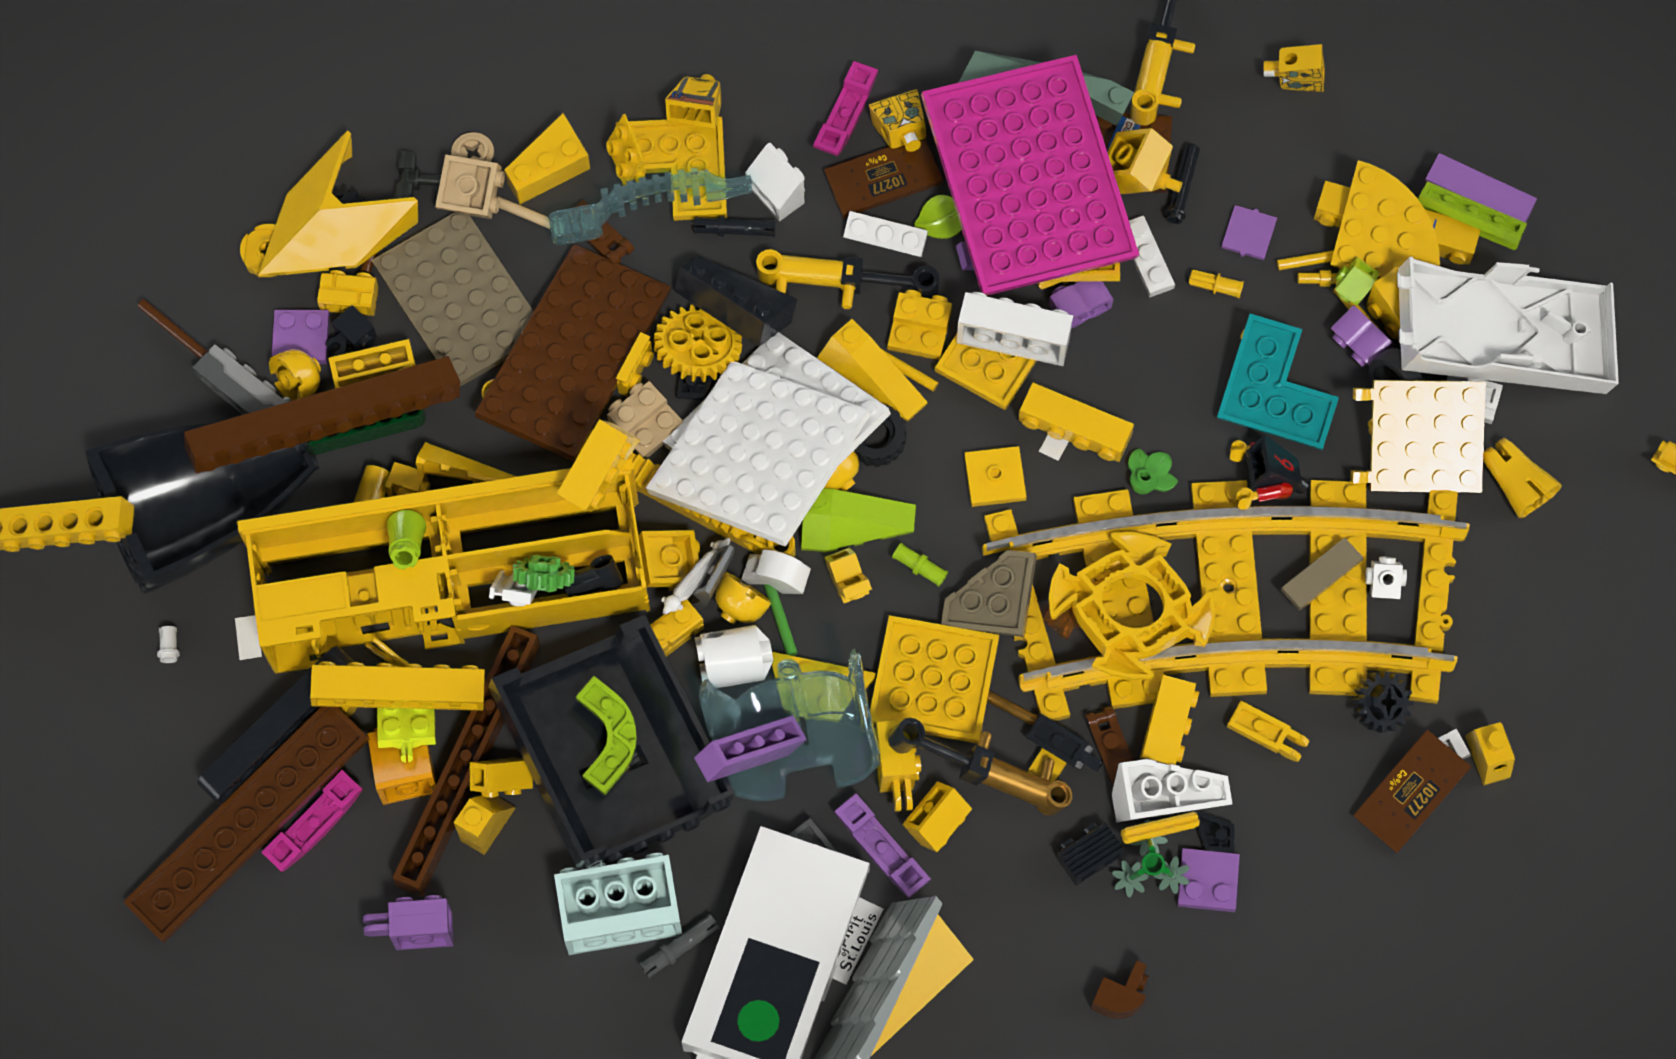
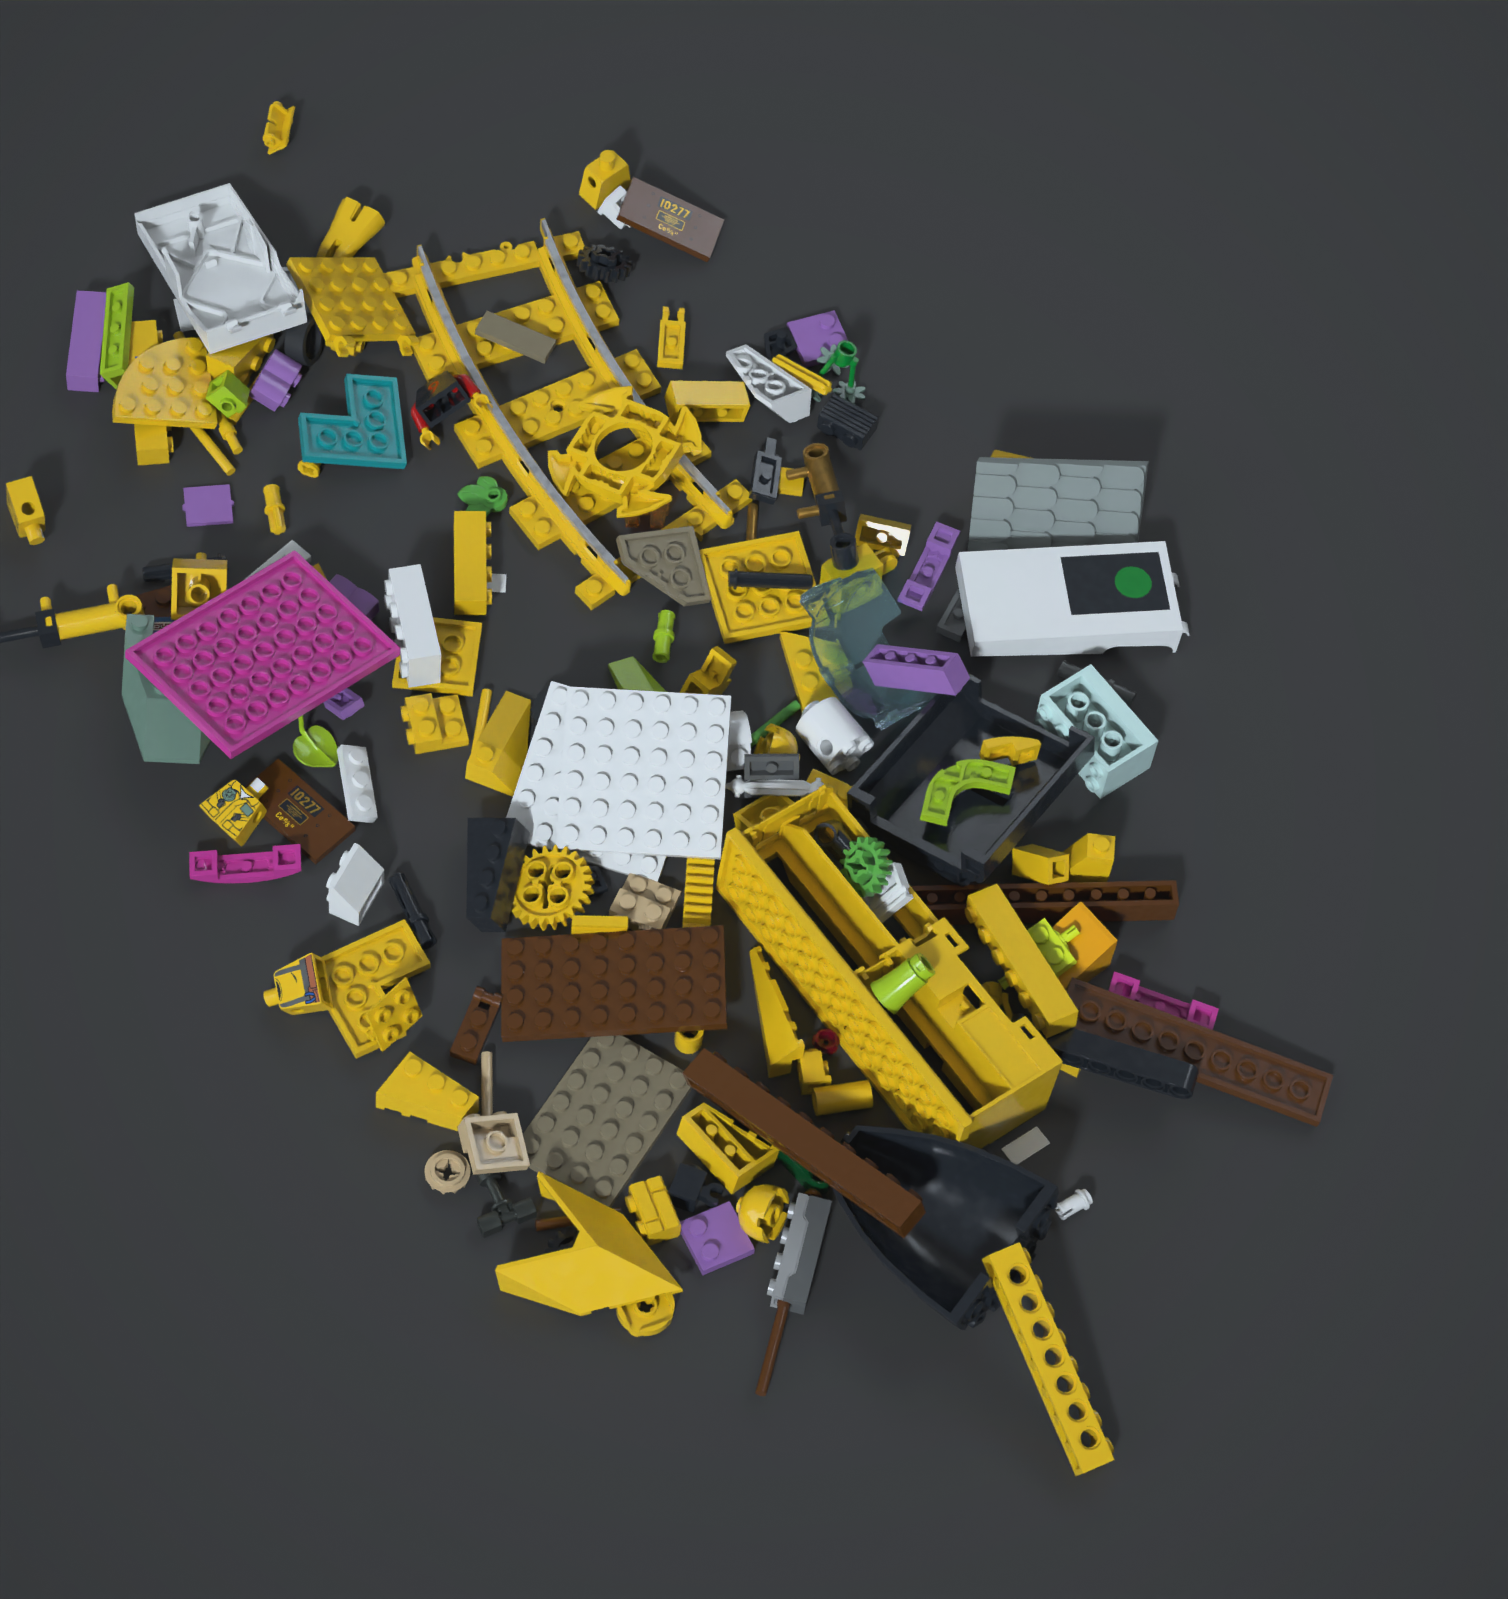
camera: 125 degrees left, 10 degrees down
(414, 923) = (1203, 876): medium lavender brick -> none
(586, 221) = (477, 1023): clear light blue piece -> none
(597, 465) = (753, 840): yellow wedge -> none
(625, 805) = (1015, 748): none -> yellow slope
(837, 274) = (416, 800): yellow piece -> none
(931, 678) = (769, 580): none -> black axle
(995, 476) = (549, 612): yellow plate -> none
(1110, 742) = (745, 442): reddish brown plate -> none
(1119, 1000) = (952, 356): reddish brown brick -> none
(1386, 588) = (494, 293): white brick -> none

